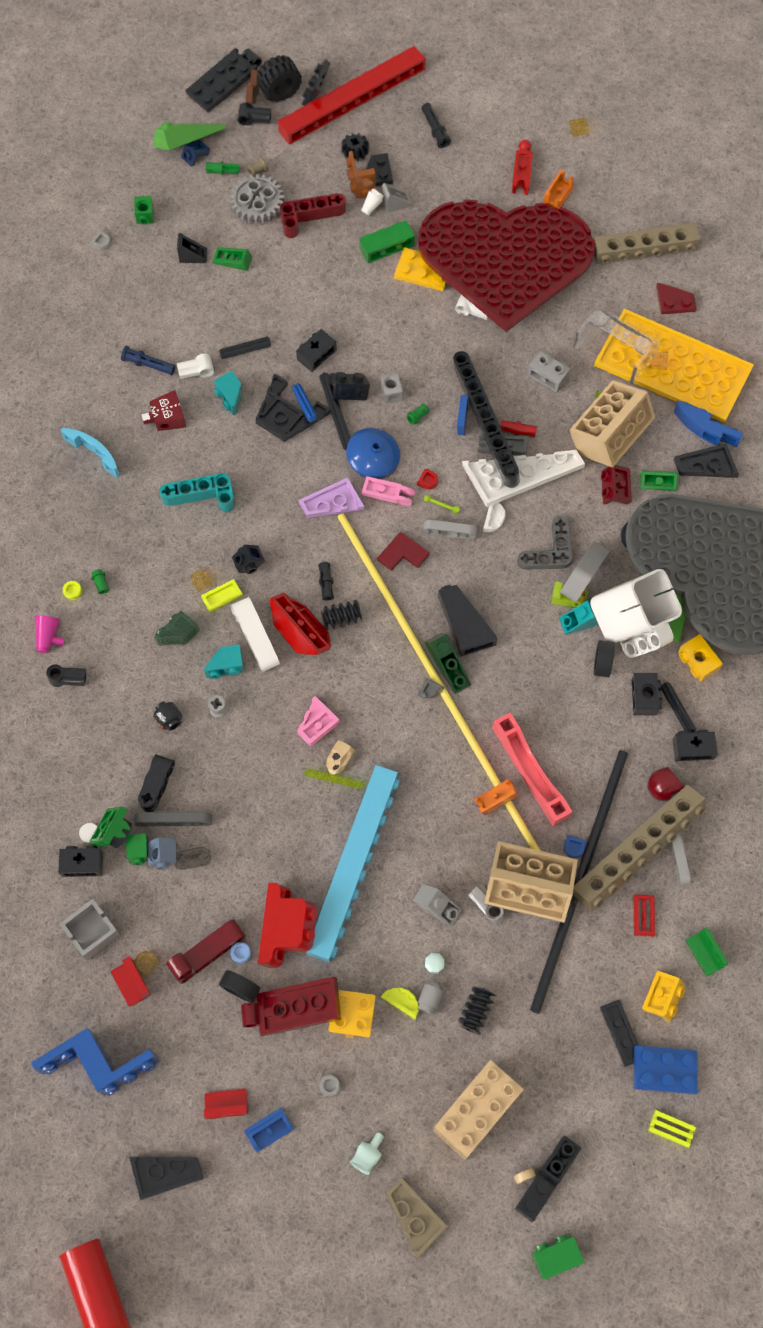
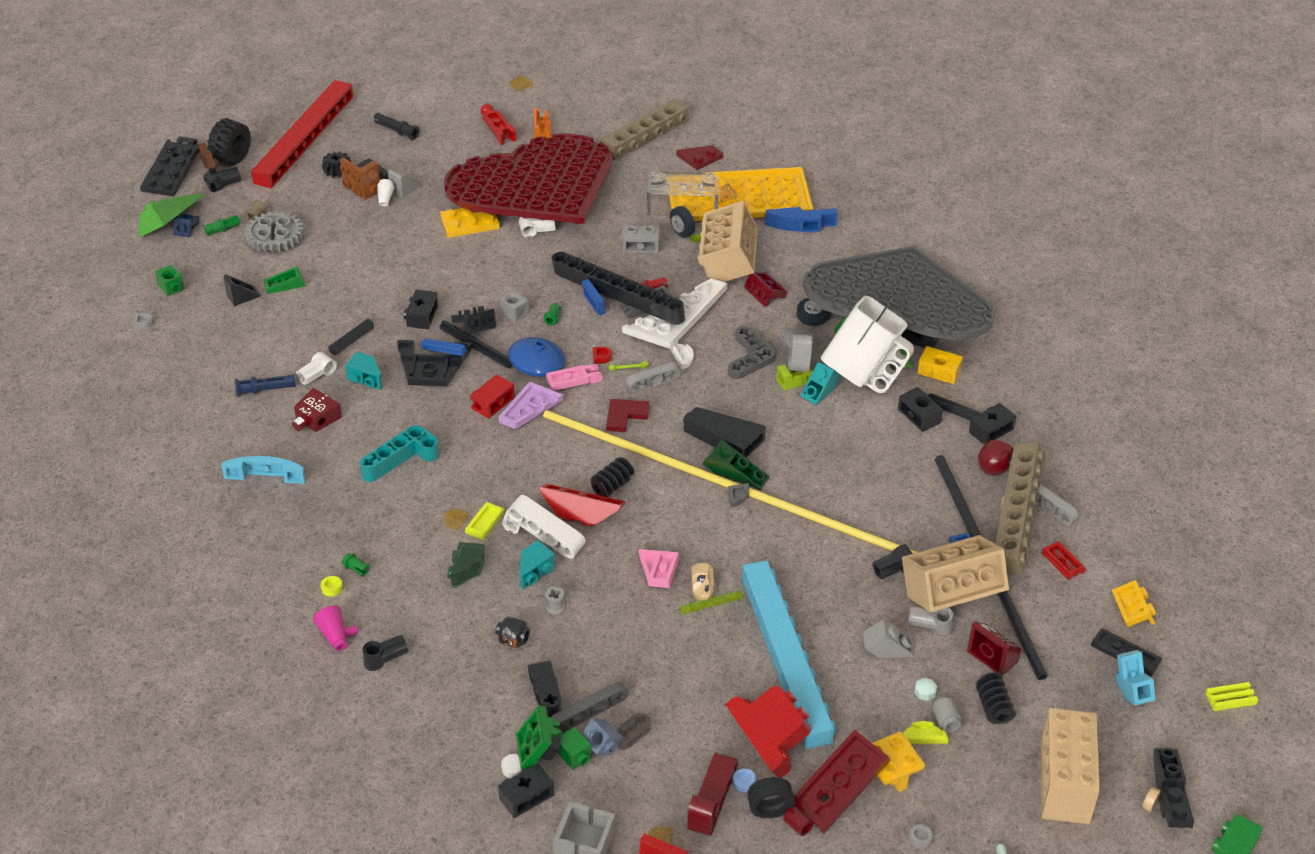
camera: 35 degrees left, 25 degrees down
(248, 559) = (489, 478): black brick -> none
(309, 475) = (492, 396): none -> red brick
(310, 209) = (321, 225): dark red beam -> none
(315, 82) = (264, 135): black wing -> none
(326, 581) = (566, 457): black pin -> none
(386, 241) = (421, 213): green brick -> none
(496, 797) = (867, 537): orange hinge -> none
(503, 833) = (891, 563): none -> black piece
(513, 964) = (992, 648): none -> dark red slope
(544, 792) = (841, 490): coral arch -> none
(595, 373) = (682, 221): none -> black wheel
(600, 1066) = (1132, 681): none -> medium azure brick
(604, 658) = (866, 398): black tyre -> none
(658, 480) = (794, 270): green slope -> none
(665, 1070) = (1186, 655): blue plate -> none
(706, 952) = (1137, 554): green panel -> none
(708, 462) = (823, 242): black wing -> none

